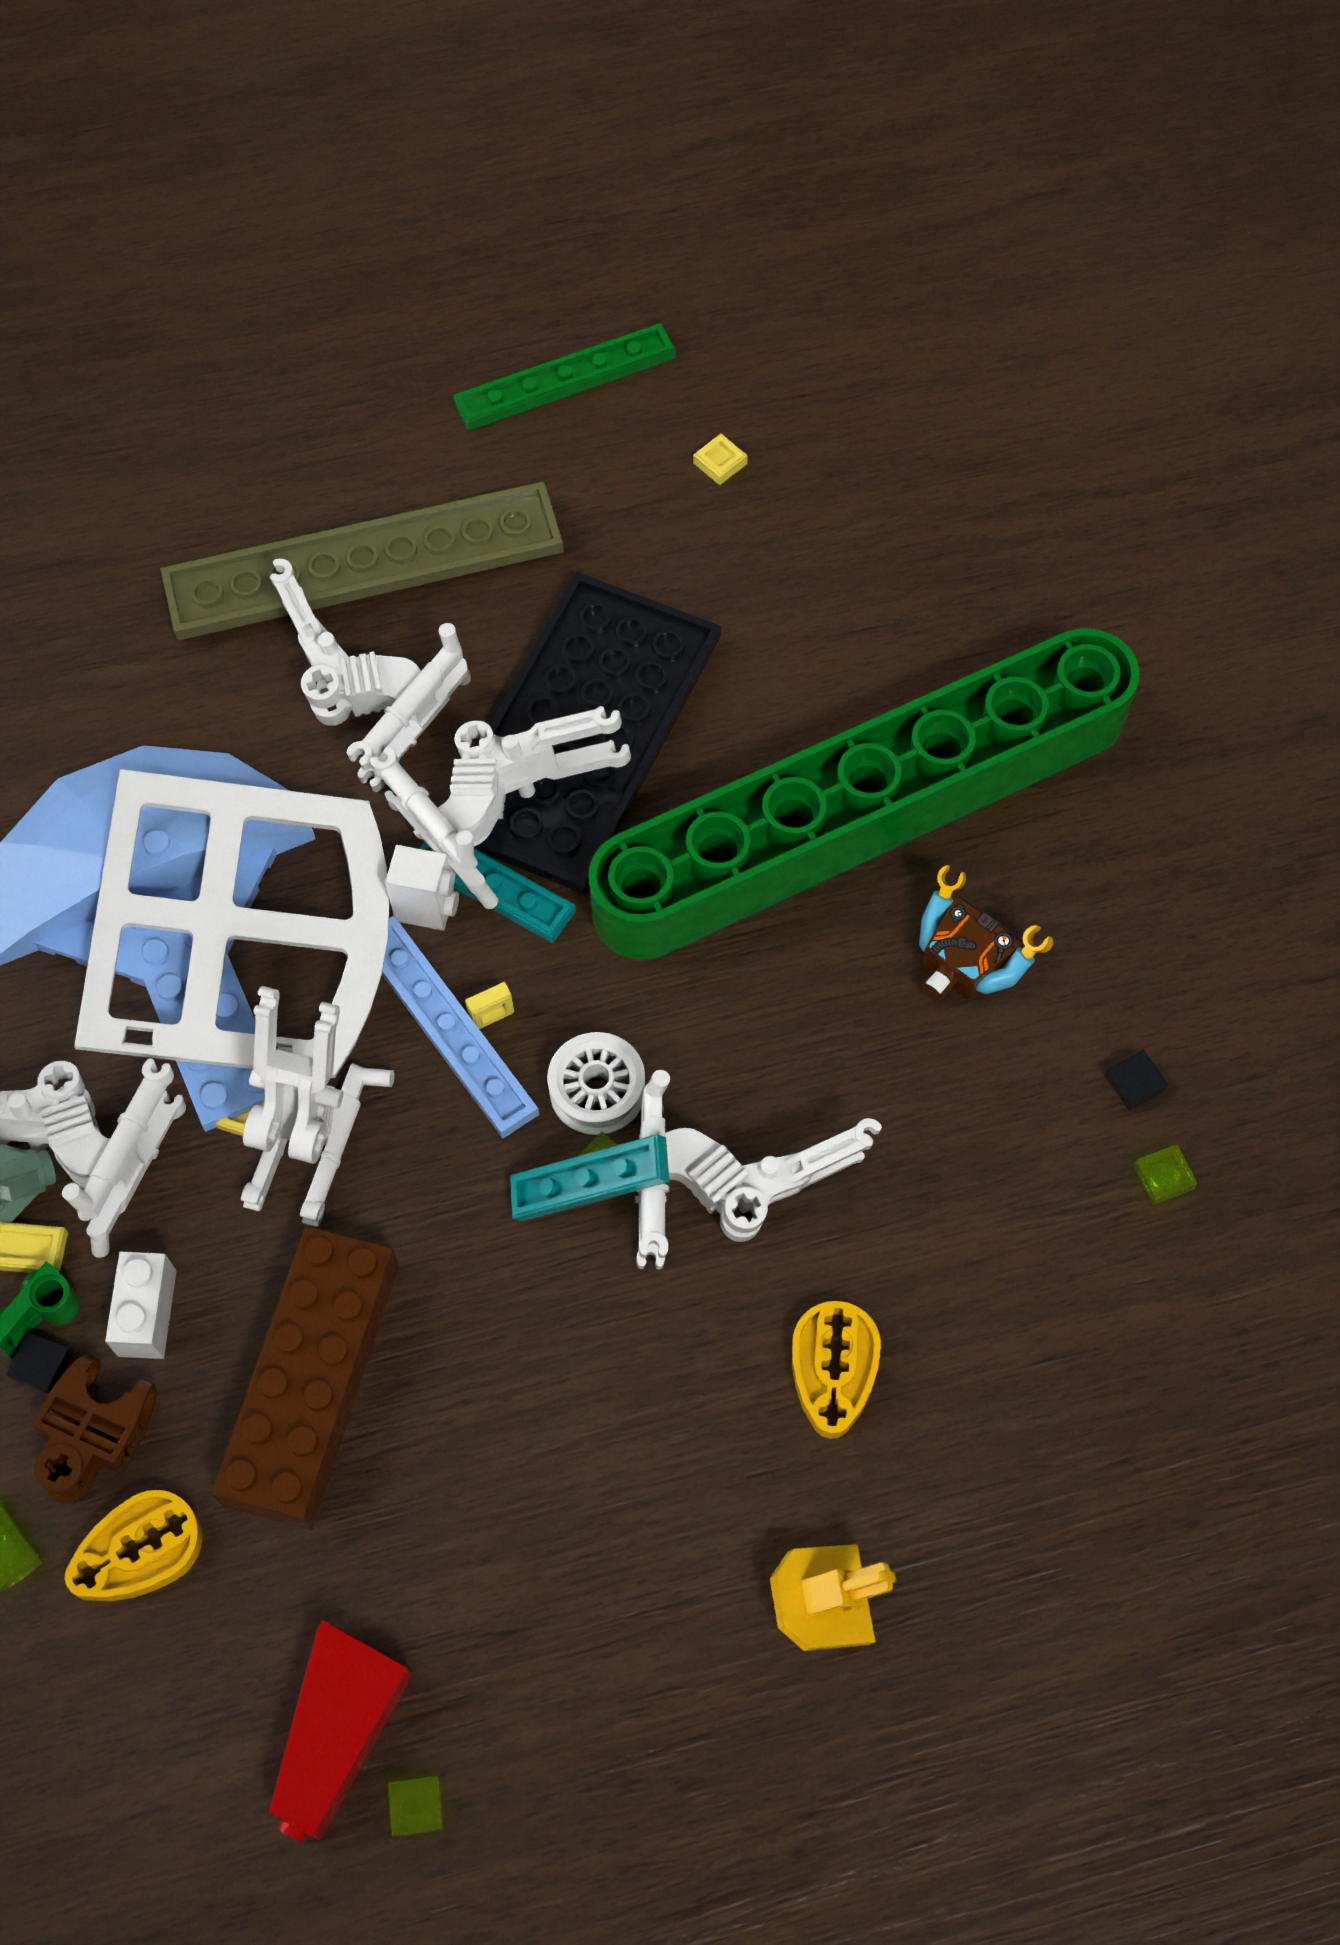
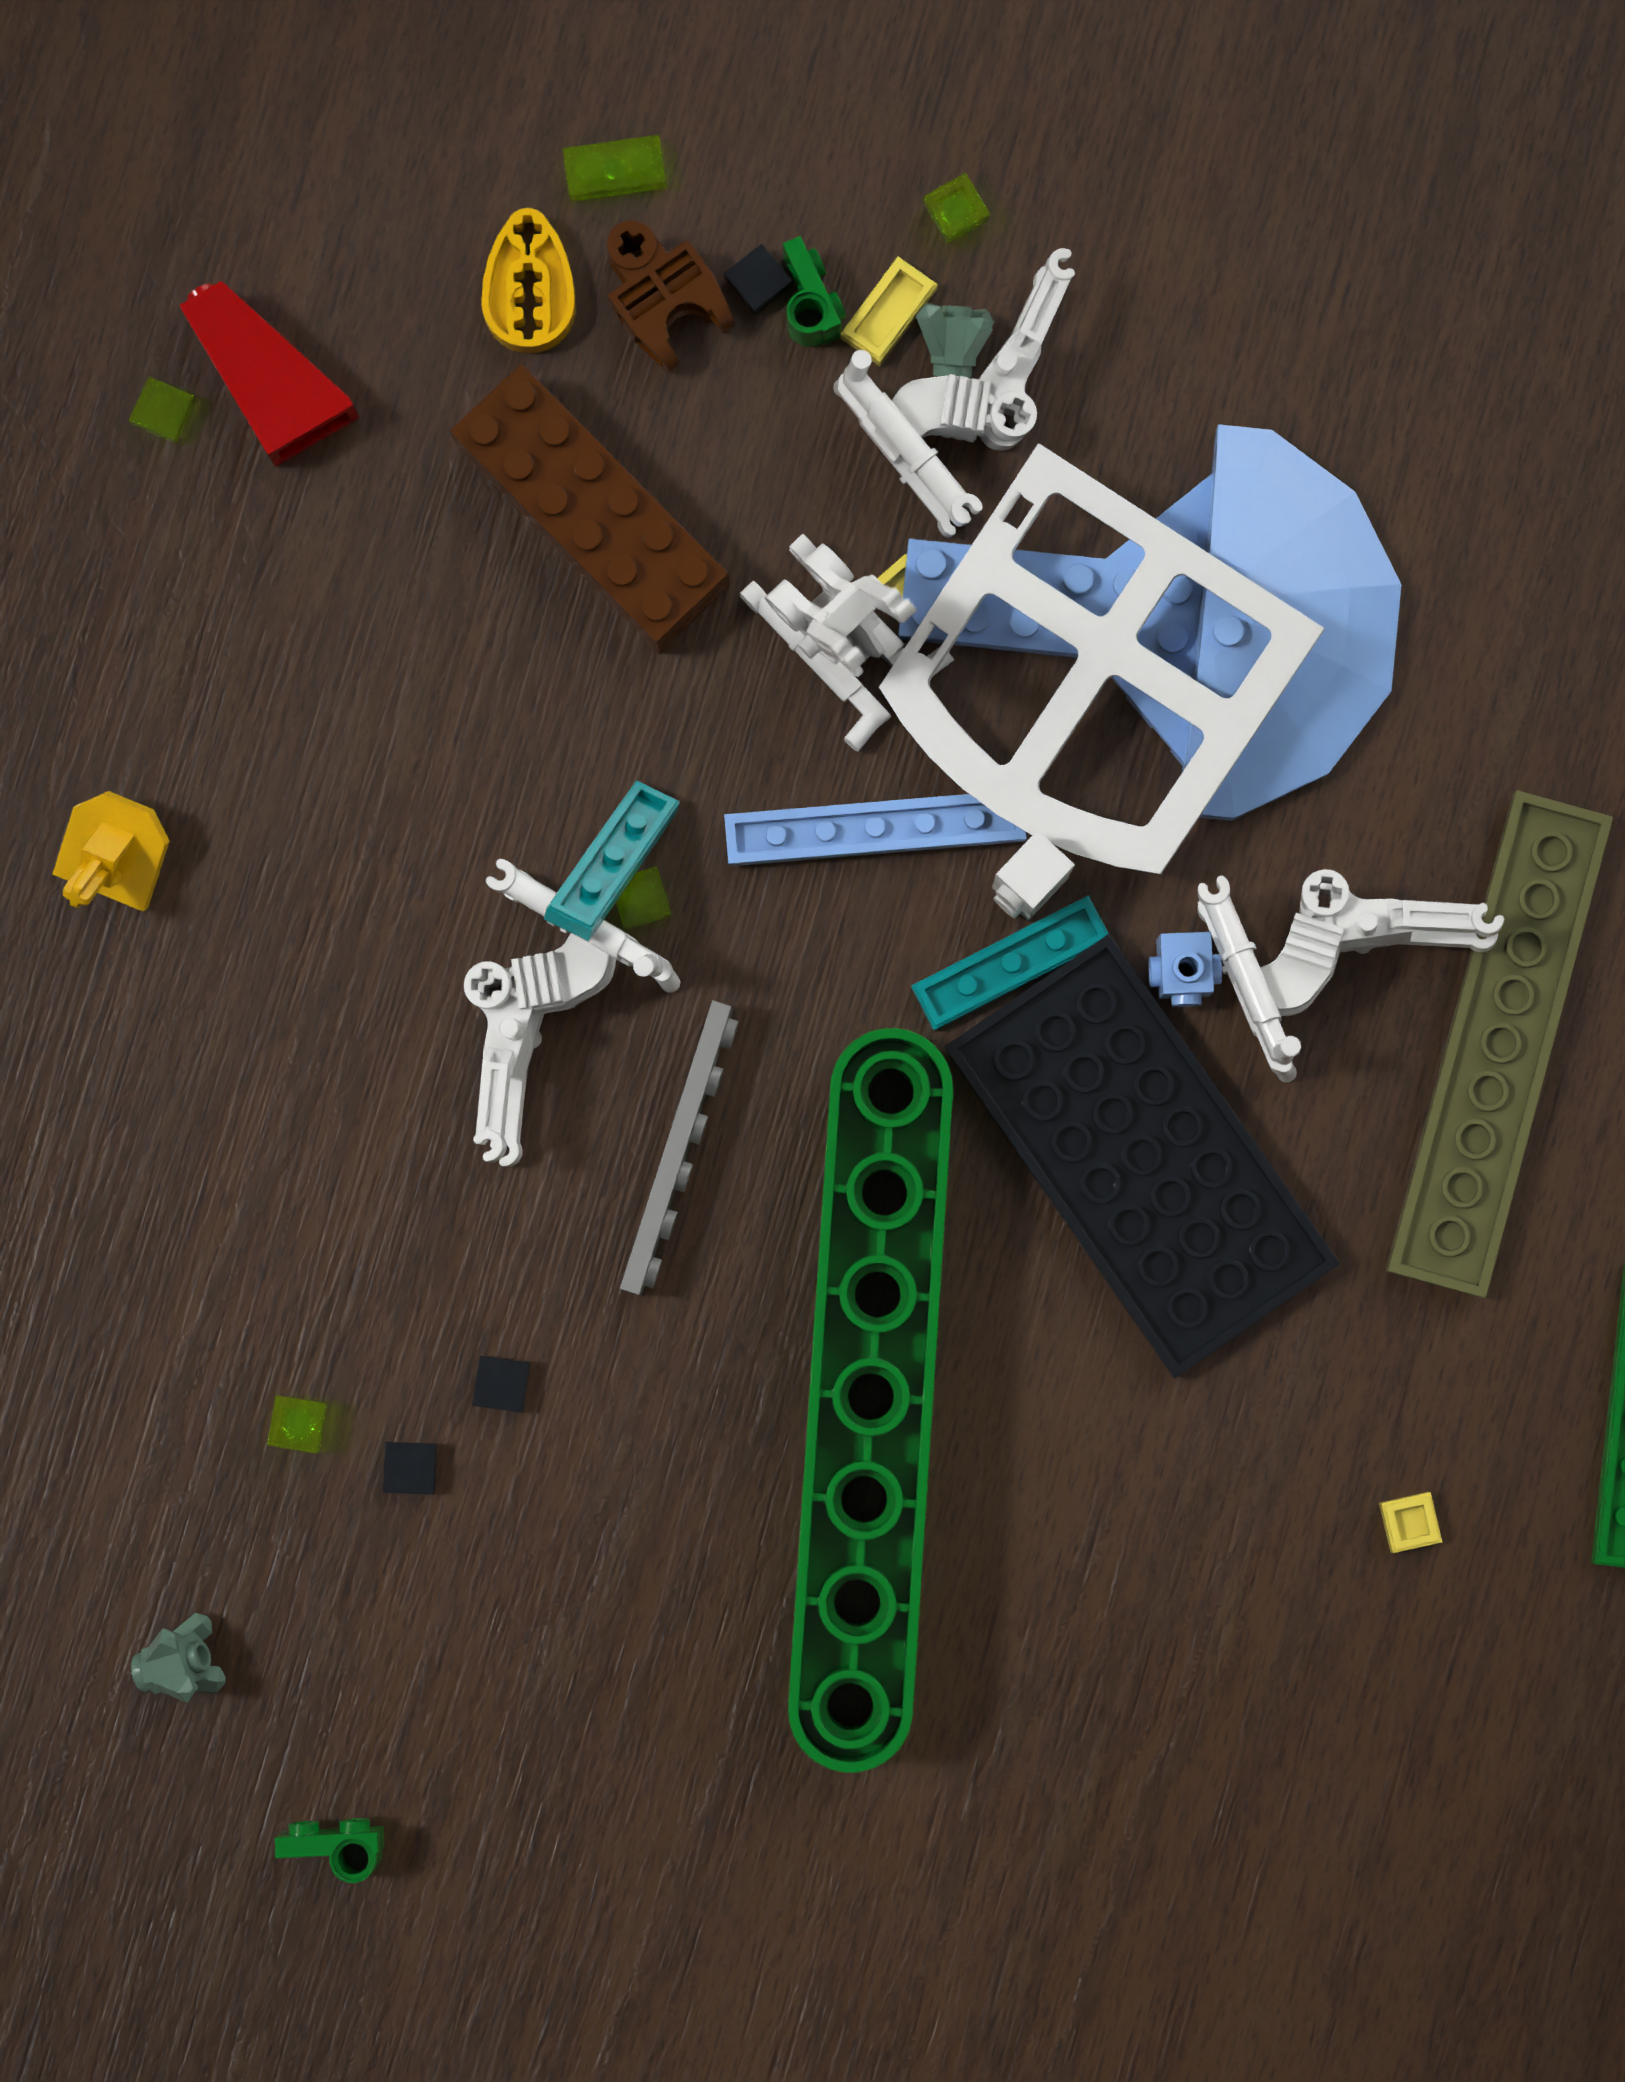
camera: 125 degrees right, 20 degrees up
(141, 1305) = (751, 392): white brick -> none
(429, 760) = (1194, 951): none -> light blue brick
(487, 775) = (1099, 991): white piece -> none
(490, 1005) = (867, 879): light yellow tile -> none
(588, 1047) = (693, 905): white wheel -> none
(763, 1027) = (686, 1129): none -> light grey plate
(809, 1357) = (300, 1020): yellow piece -> none
(970, 948) = (640, 1392): torso -> none
(1031, 1052) = (501, 1384): none -> black tile

